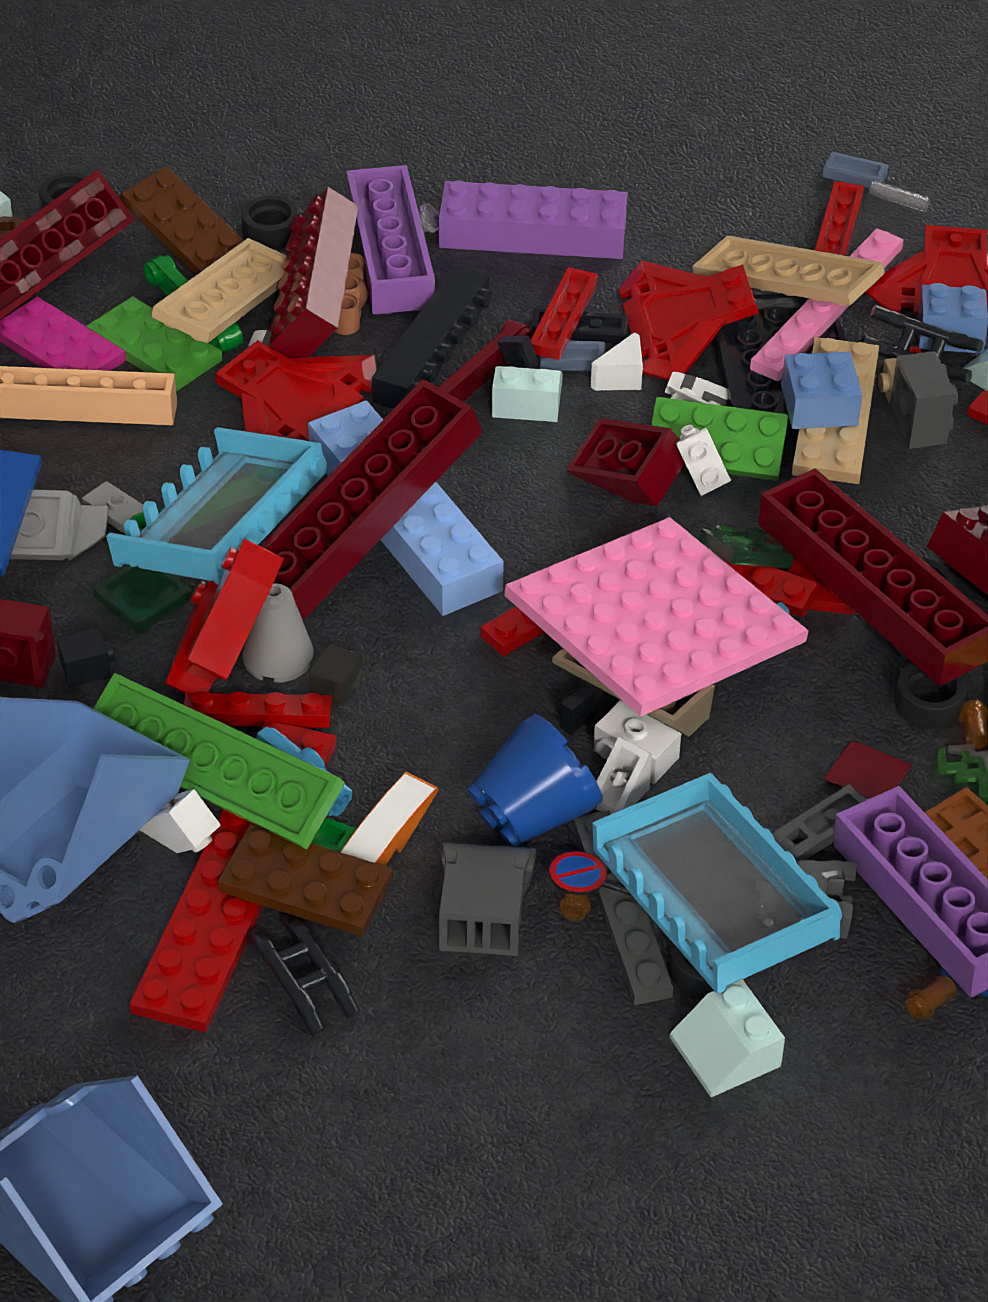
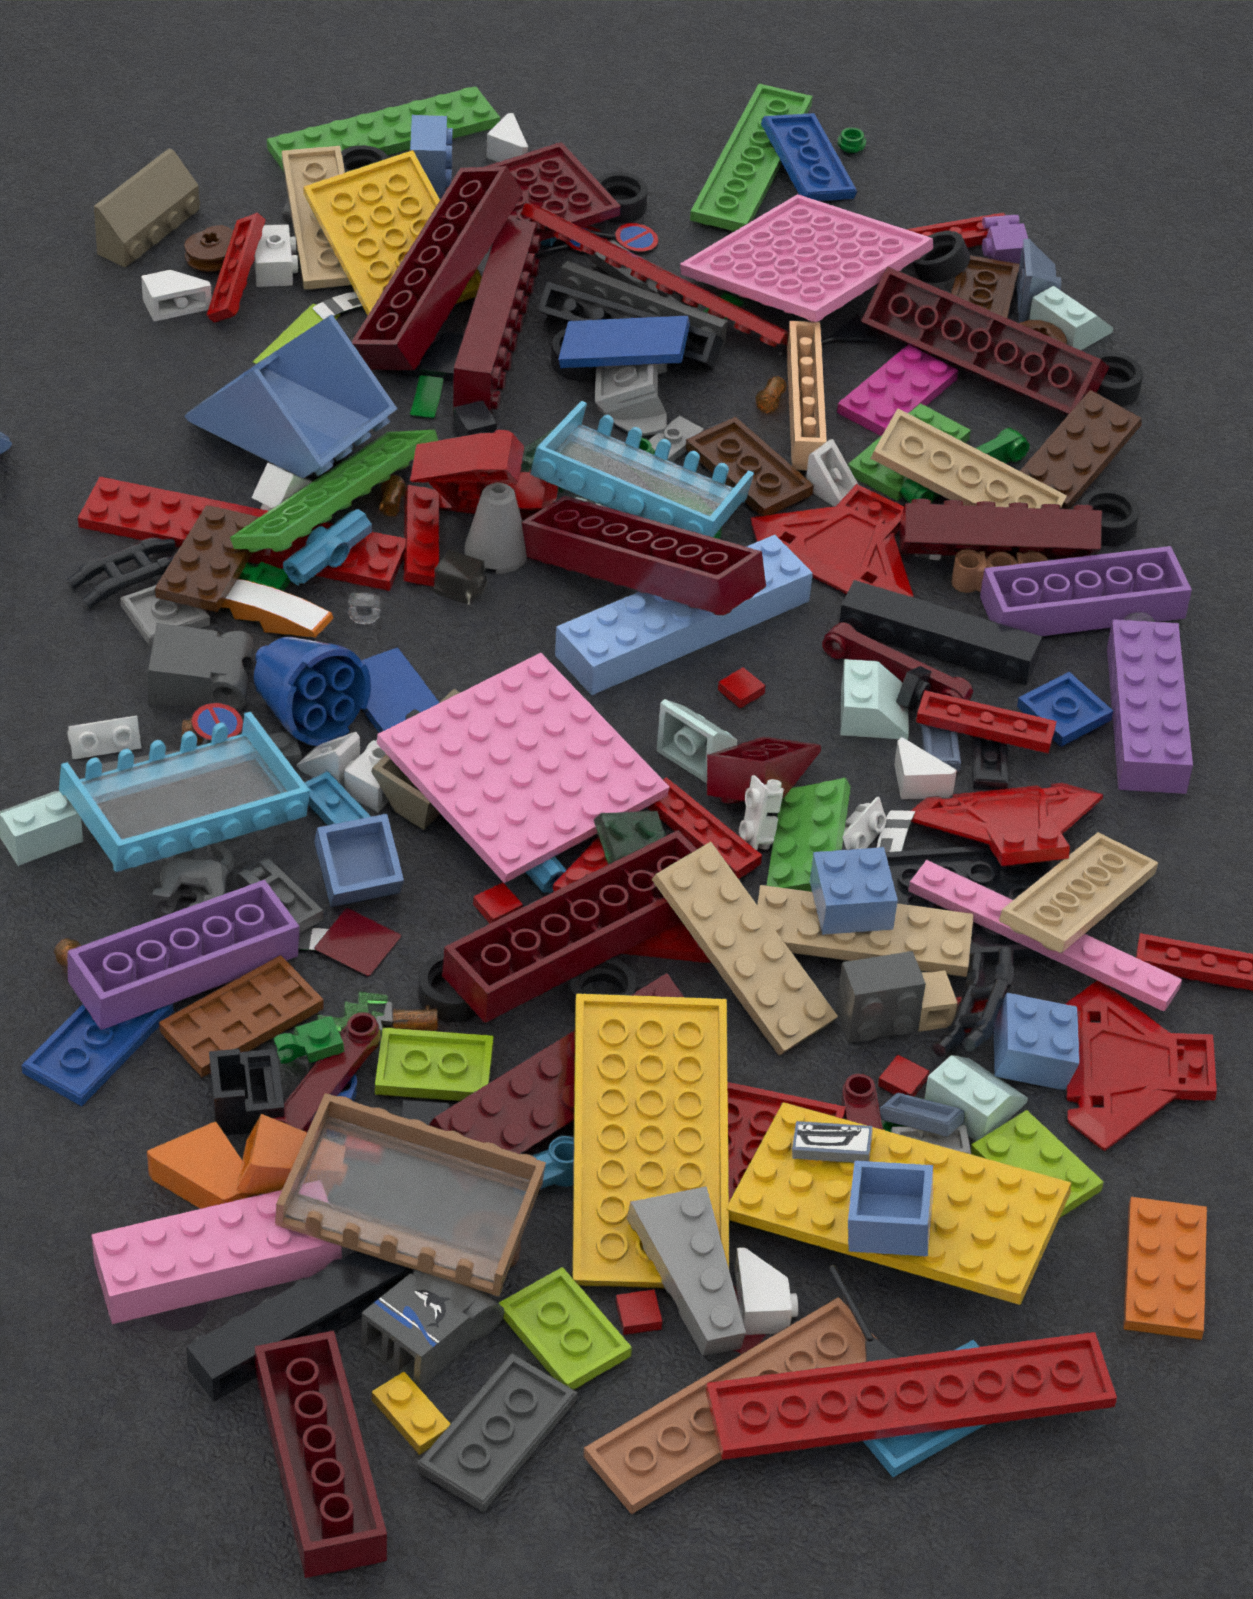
camera: 85 degrees right, 0 degrees up
(62, 431) = (768, 398): none -> clear orange pin
(157, 455) = (774, 479): none -> reddish brown plate
(198, 394) = (829, 473): none -> white slope
(372, 755) = (364, 601): none -> clear tile
(382, 948) = (147, 610): none -> light grey tile
(481, 737) = (394, 690): none -> blue tile
(499, 479) = (741, 687): none -> red tile
(529, 272) = (1069, 704): none -> blue plate
(591, 996) = (104, 737): none -> white hinge
(593, 504) = (689, 738): none -> light aqua slope
(715, 504) = (701, 827): none -> red plate
(724, 761) = (332, 801): none -> dark azure plate
(790, 747) = (358, 860): none -> medium blue piece
(809, 663) = (496, 903): none -> red tile
(884, 472) = (744, 948): none -> tan plate

